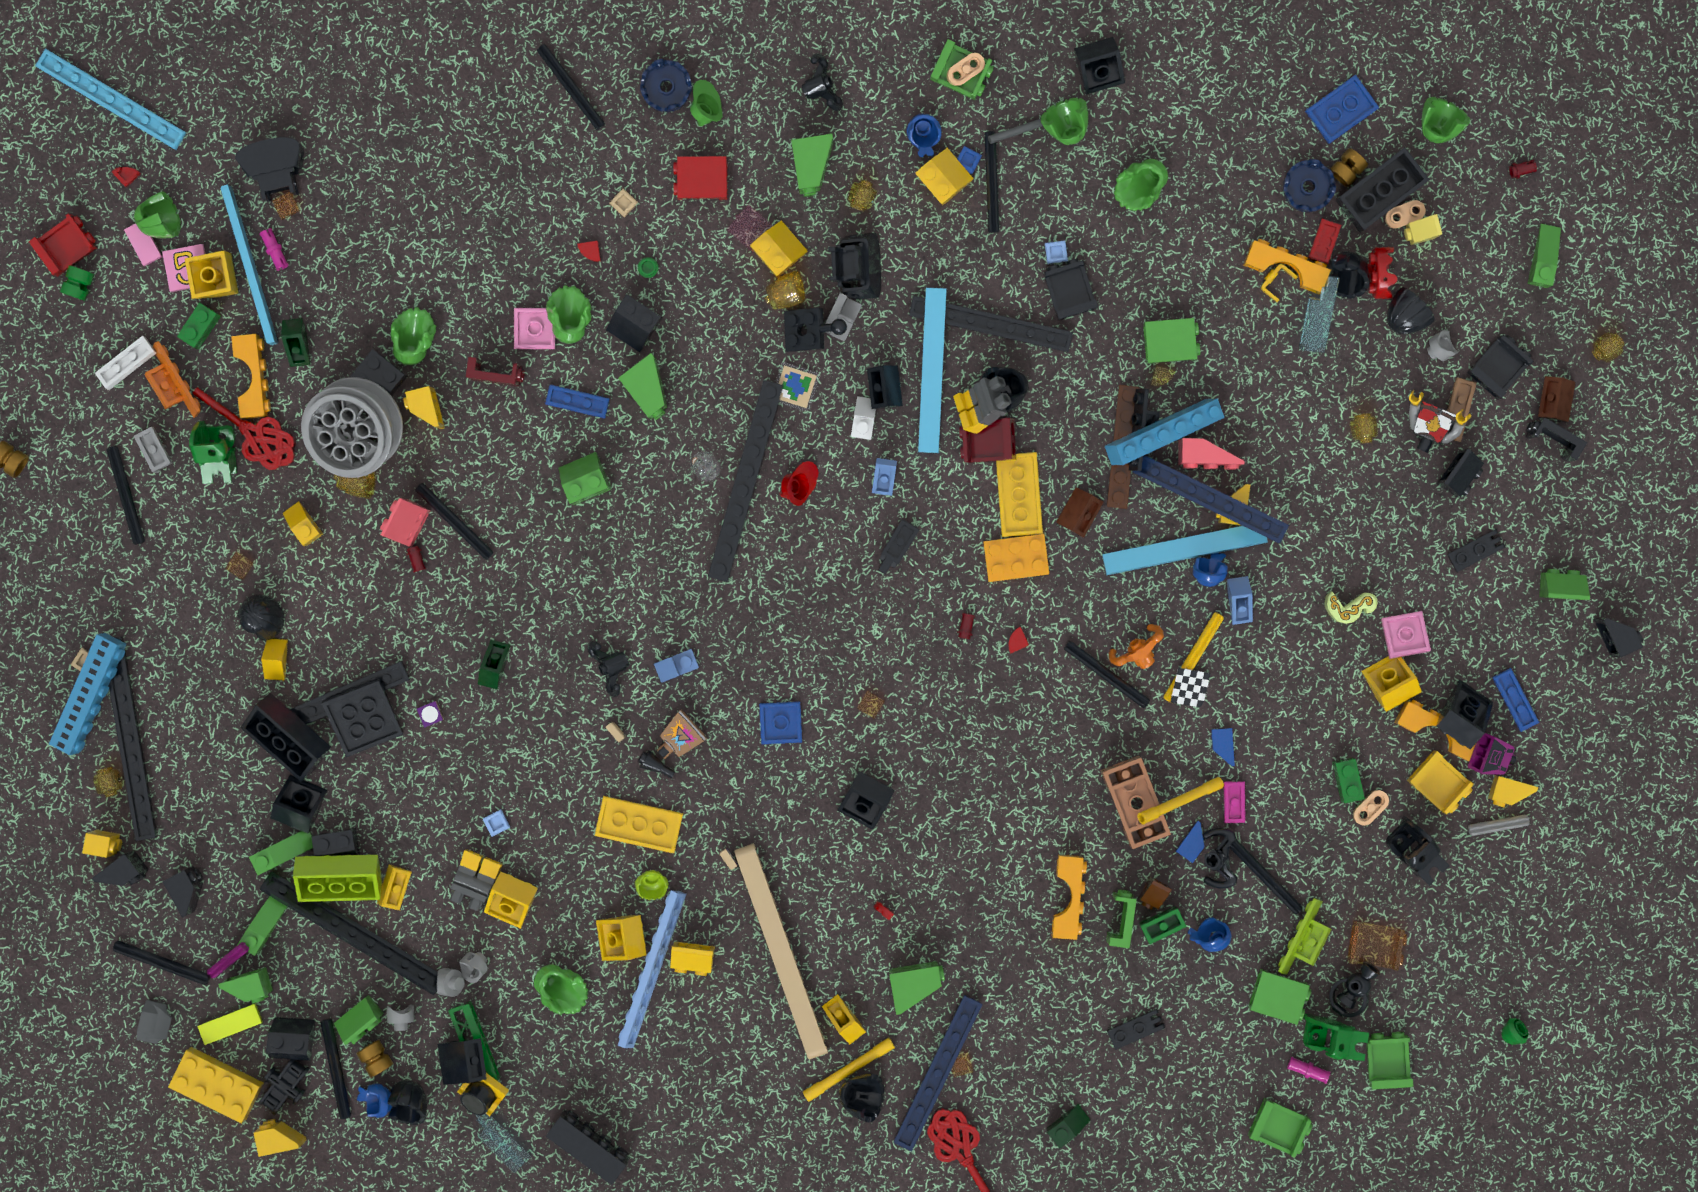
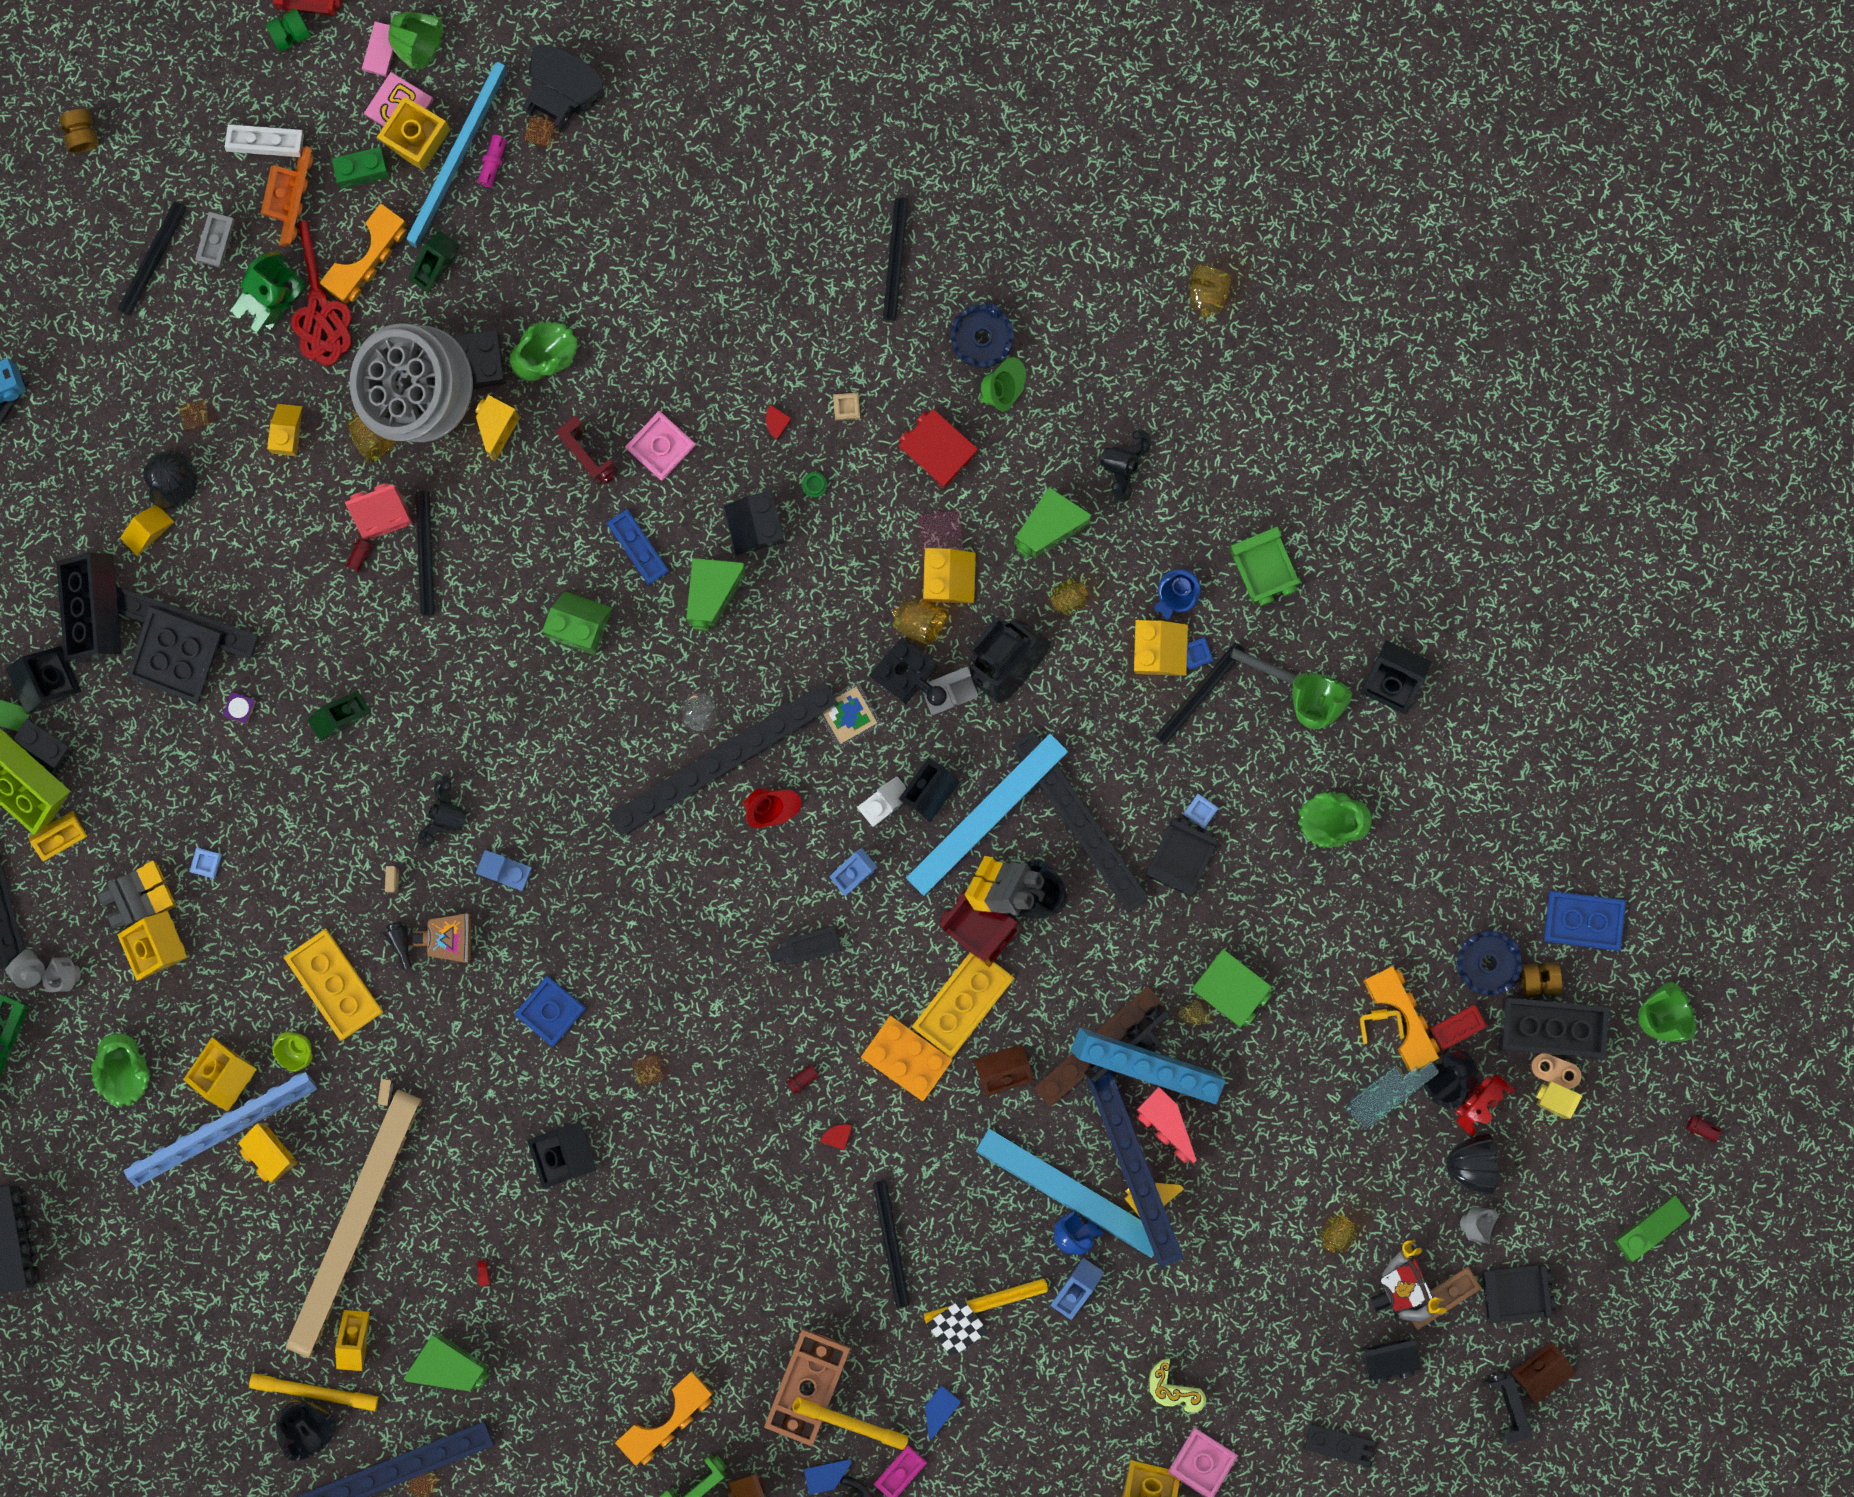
camera: 45 degrees right, 5 degrees down
(568, 313) = (702, 460): bright green hair -> none
(965, 70) = (1268, 568): light nougat plate -> none
(1139, 650) = (941, 1248): orange piece -> none
(1608, 347) = (1634, 1367): clear yellow head -> none

